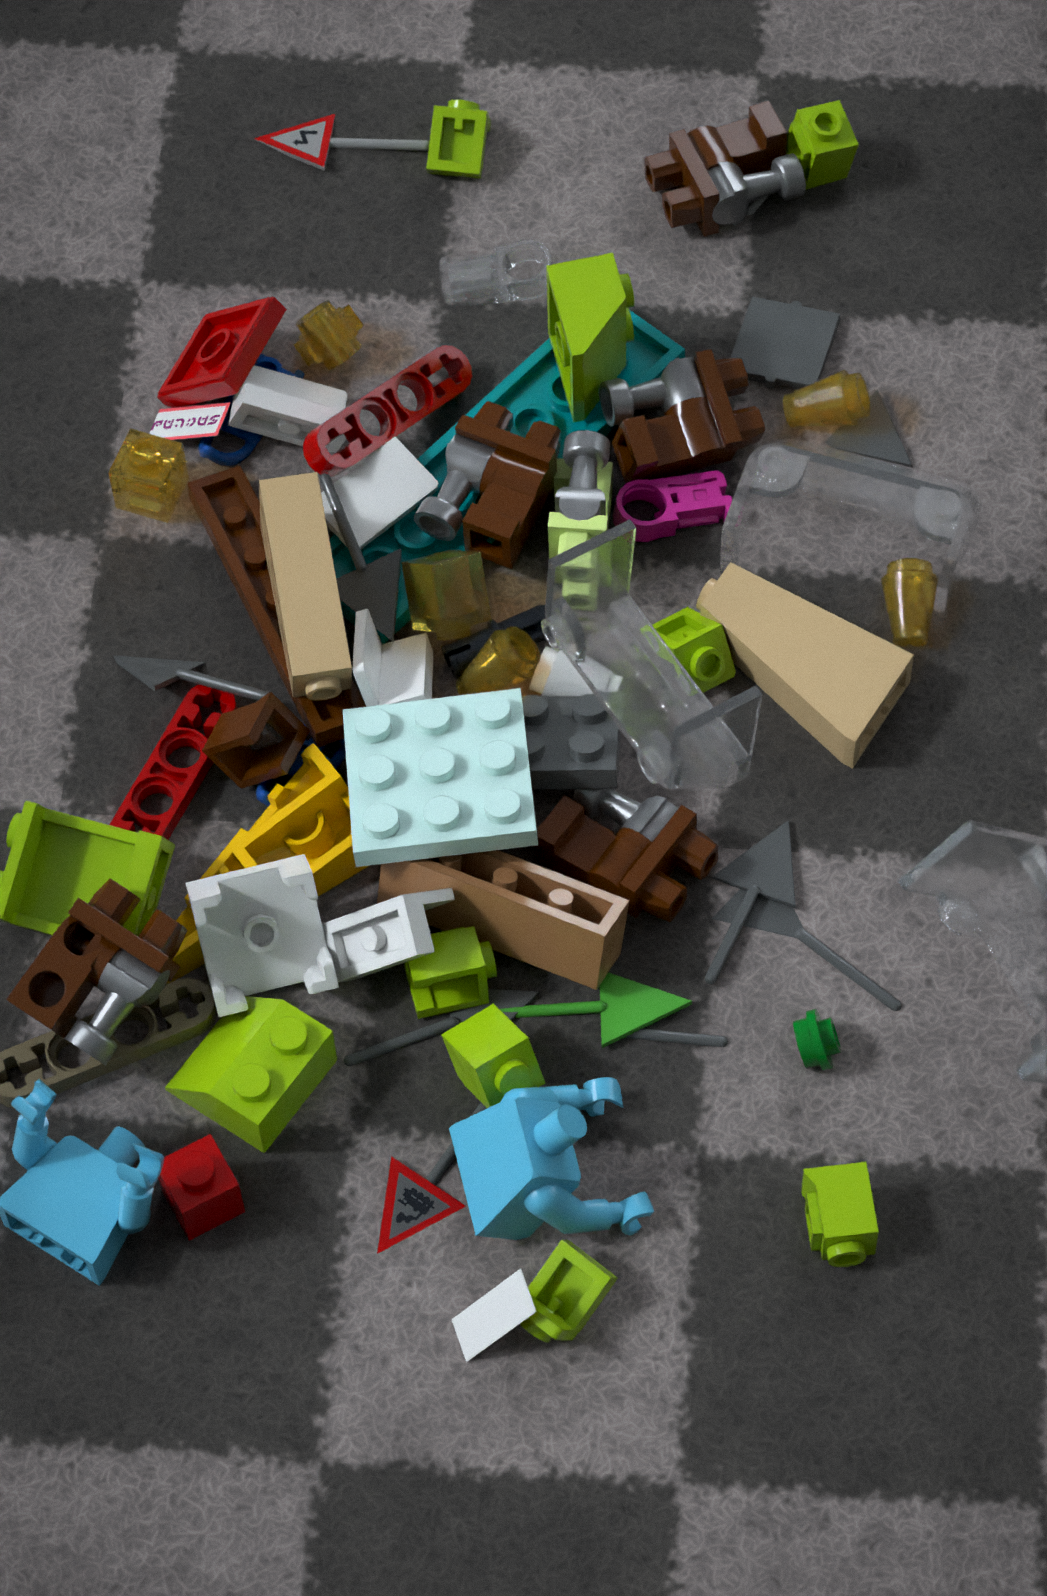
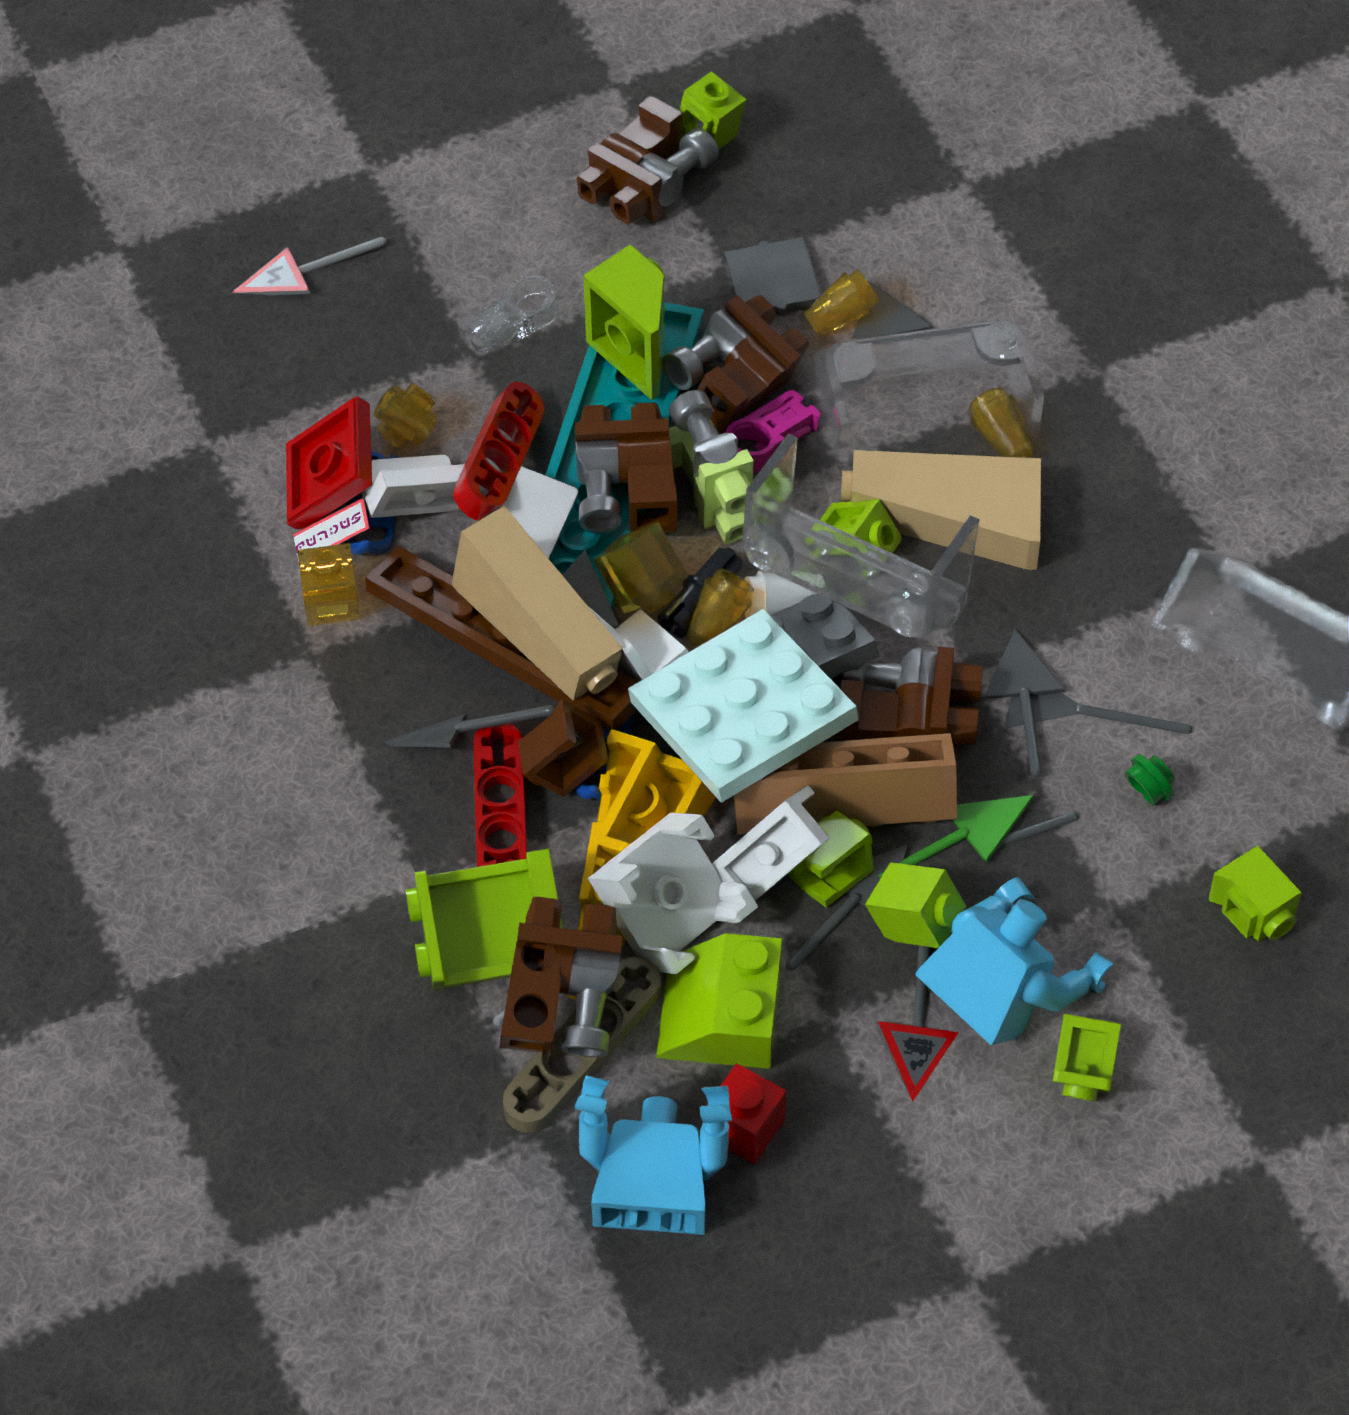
camera: 30 degrees left, 5 degrees down
(458, 139) = (410, 224): lime bracket -> none
(493, 1315) = (1046, 1098): white sticker -> none

